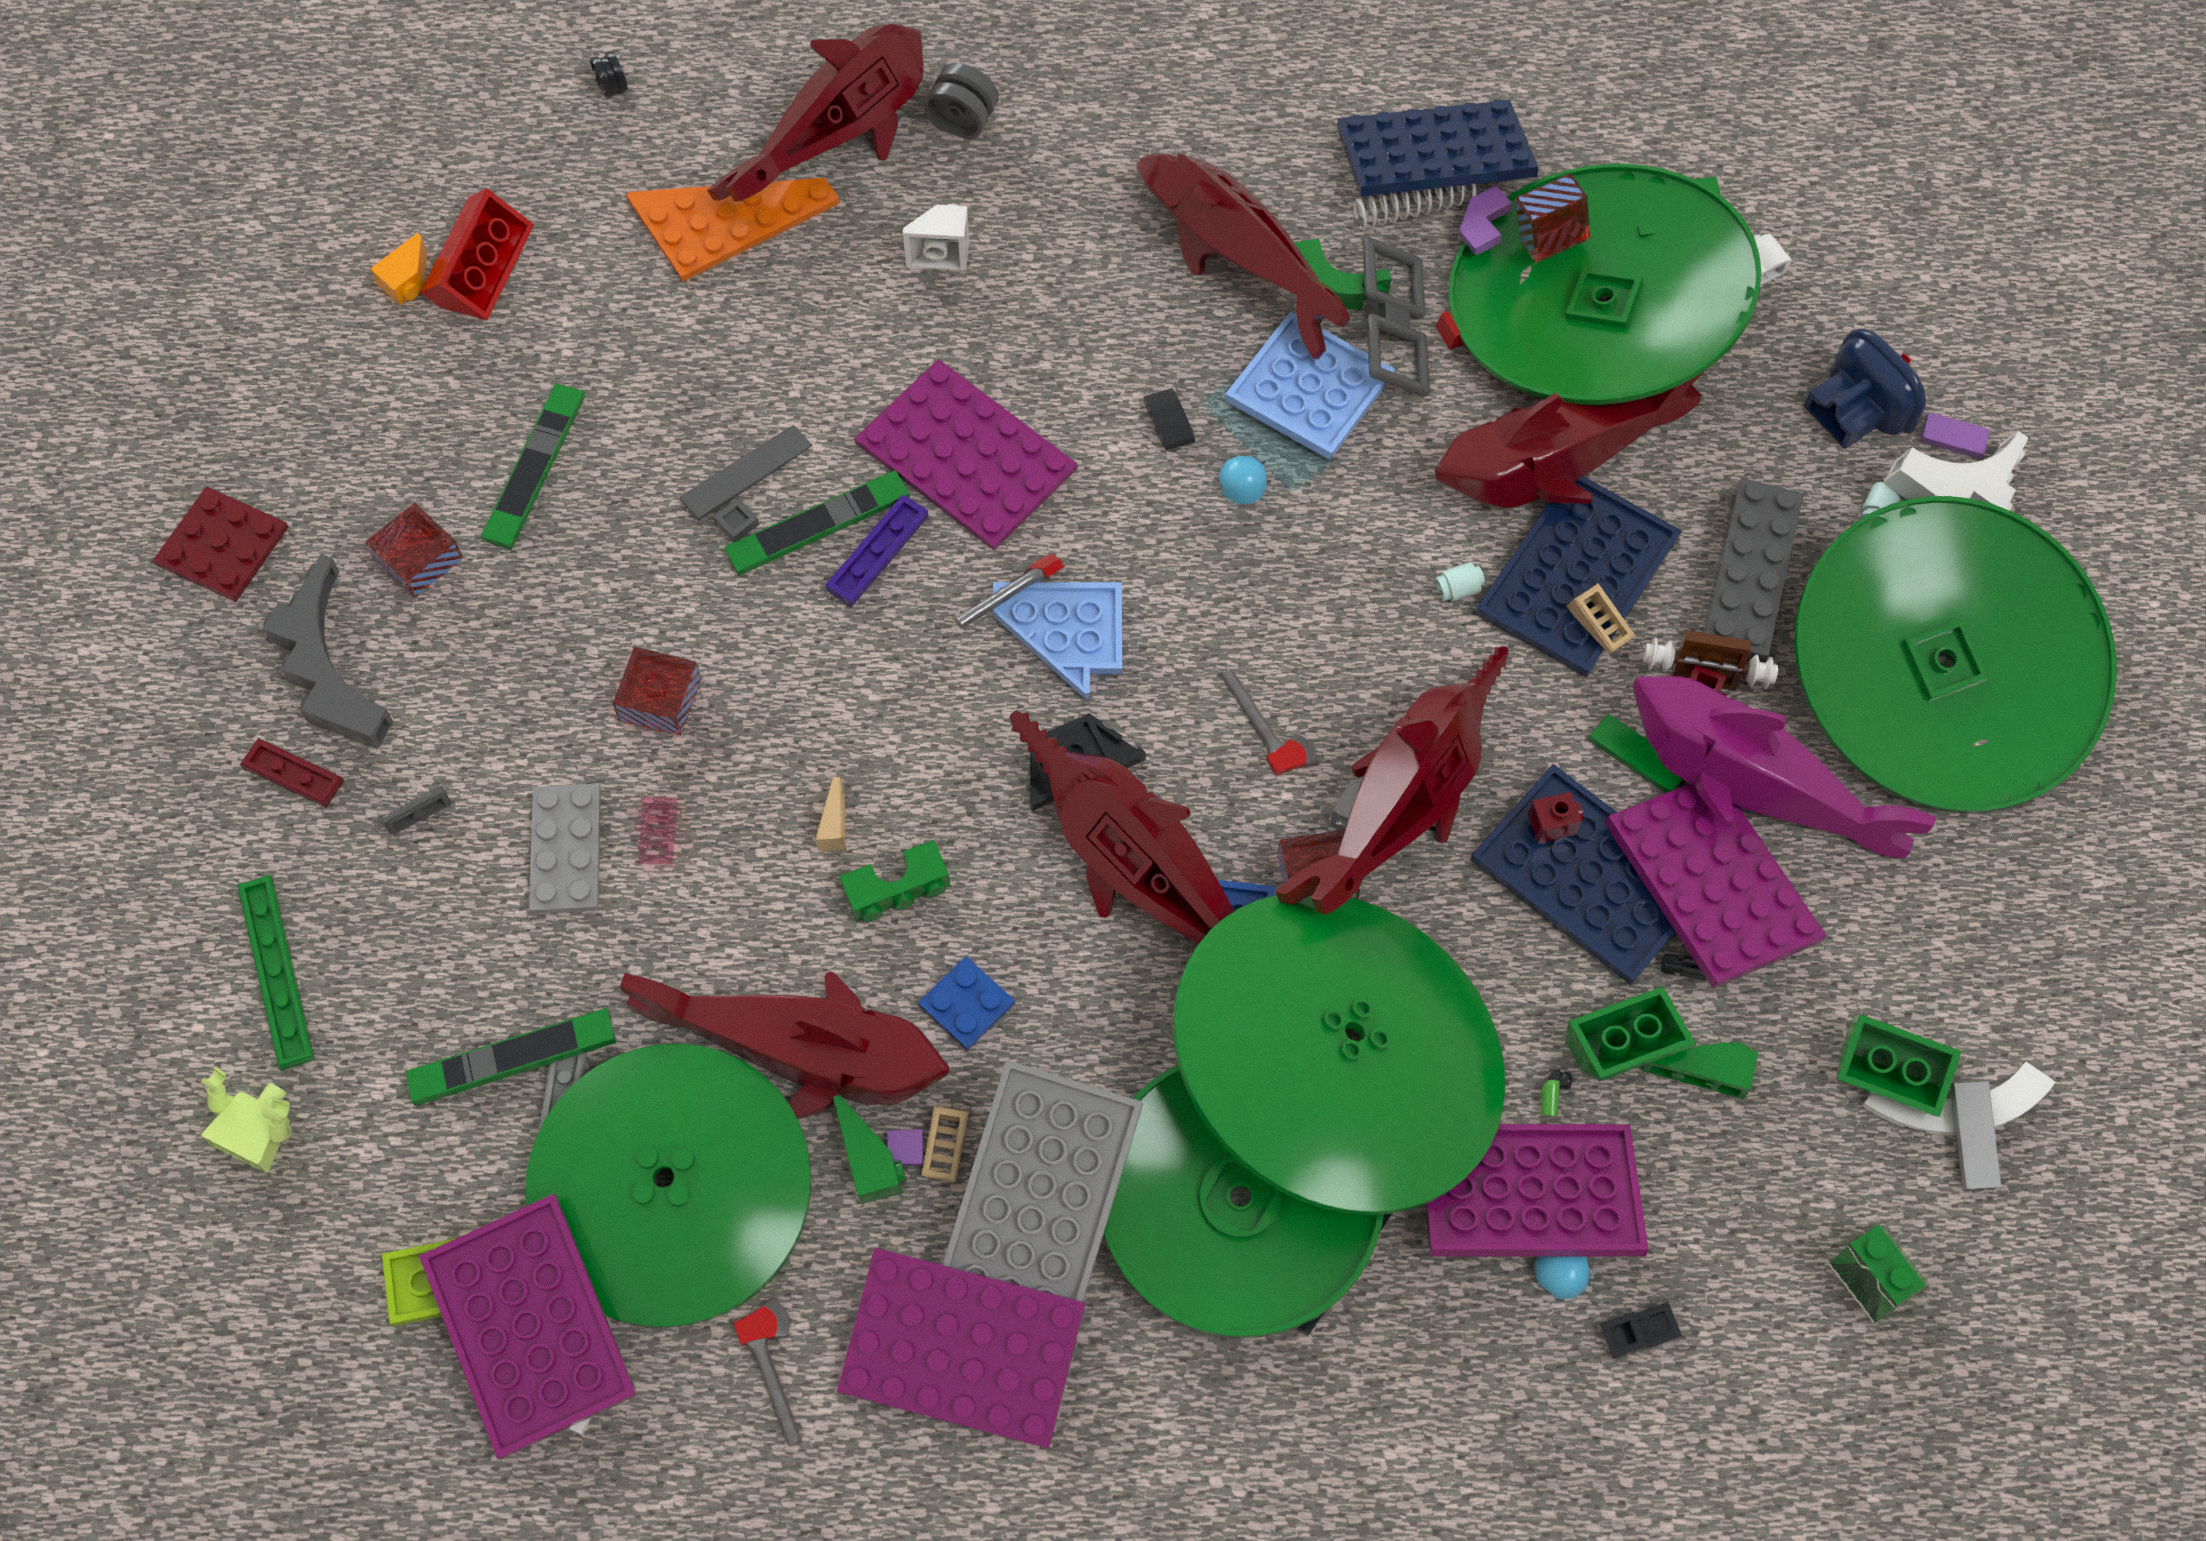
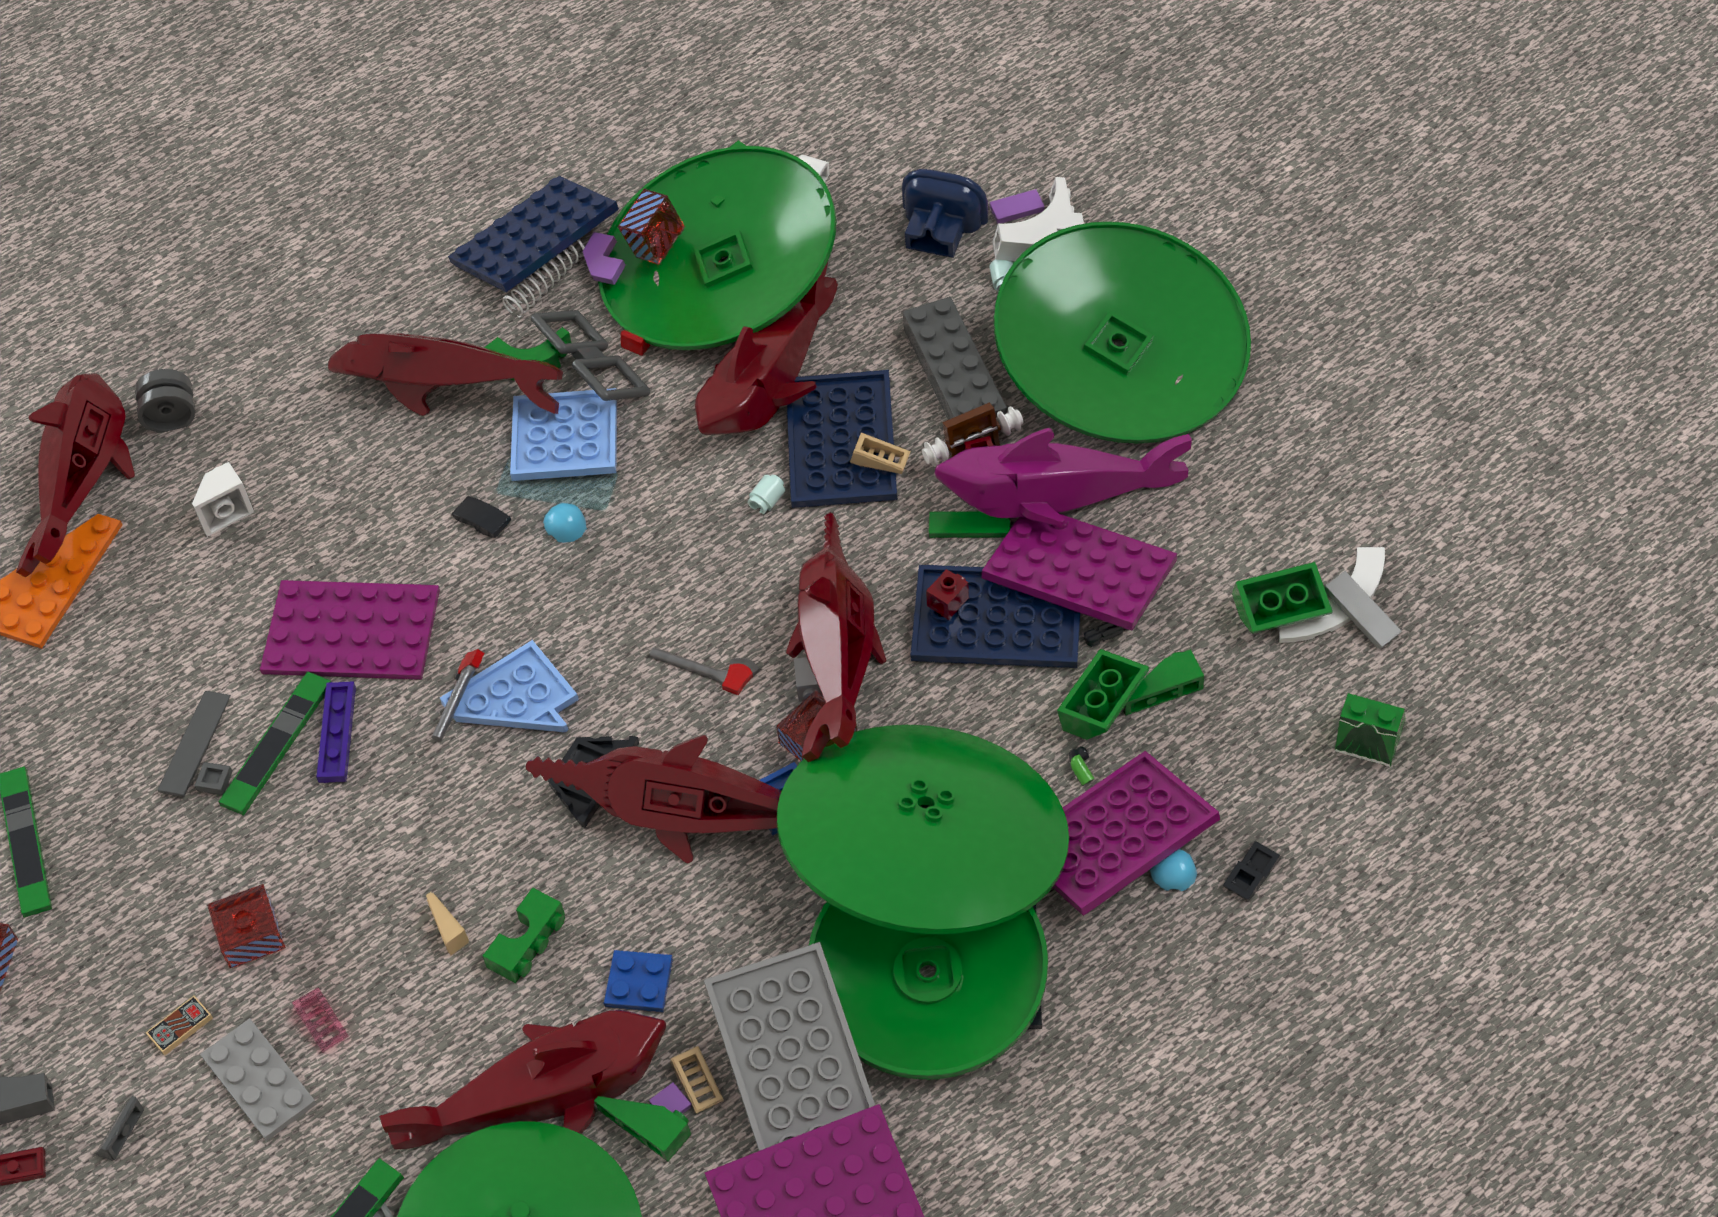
camera: 30 degrees left, 10 degrees down
(536, 745) = (179, 1025): none -> tile

